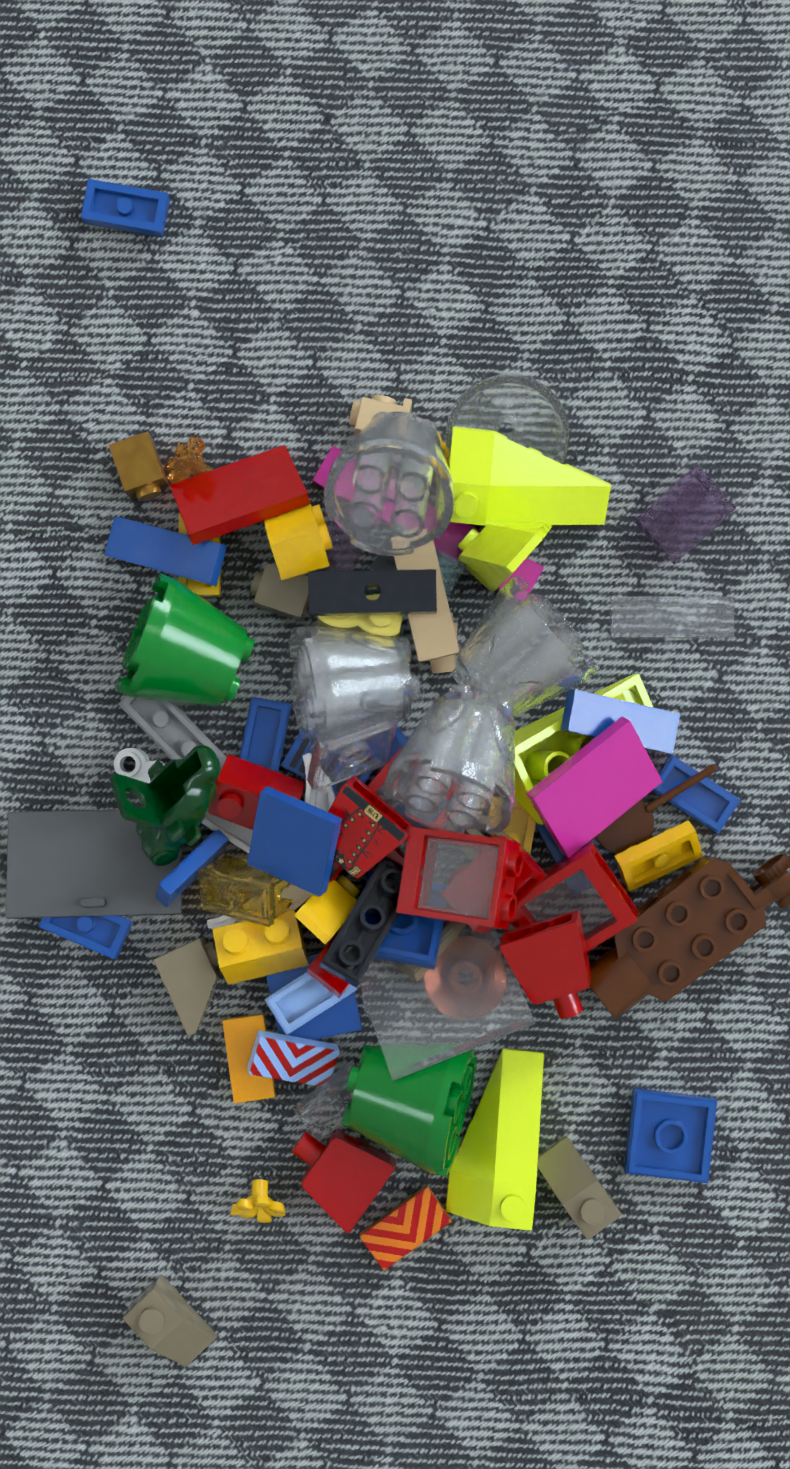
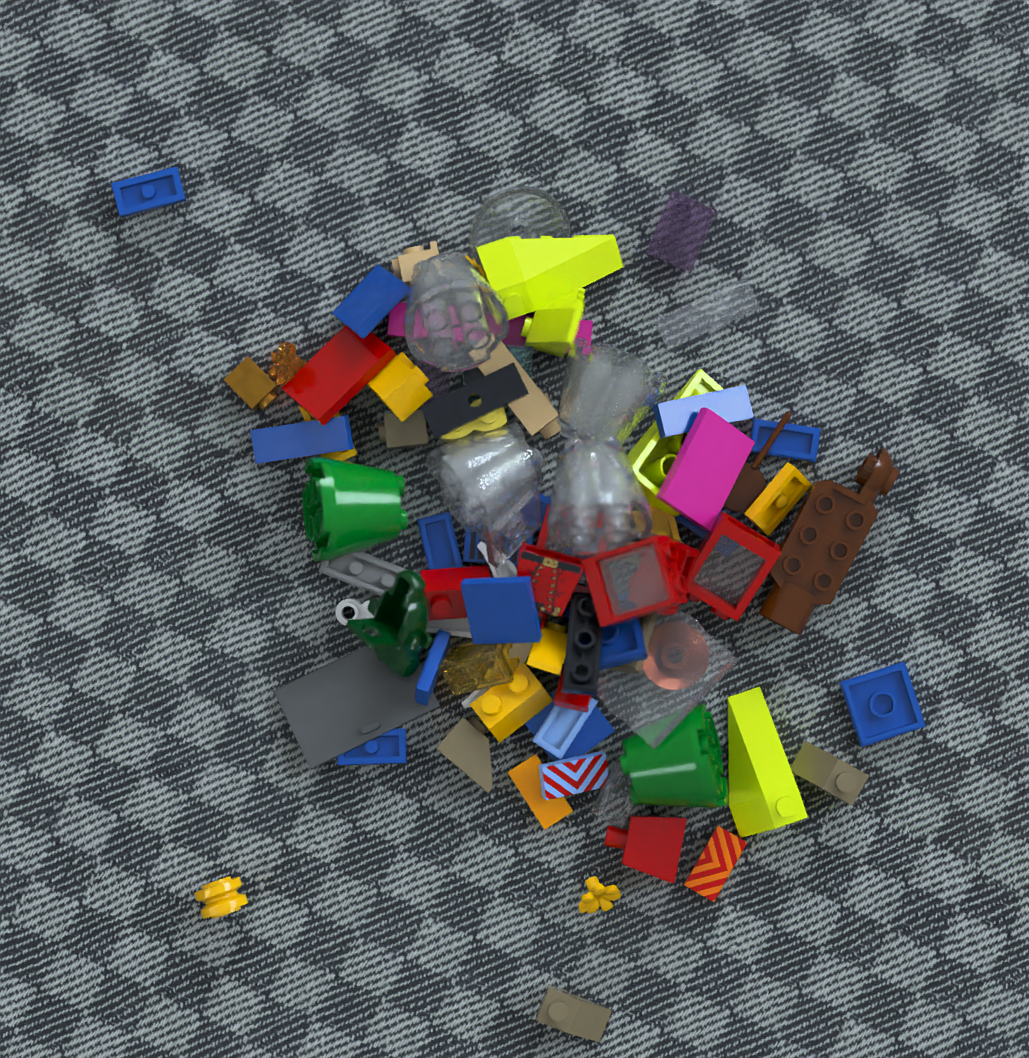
camera: 20 degrees left, 0 degrees up
(310, 433) = (371, 301): none -> blue tile
(550, 961) = (731, 612): red torso -> none

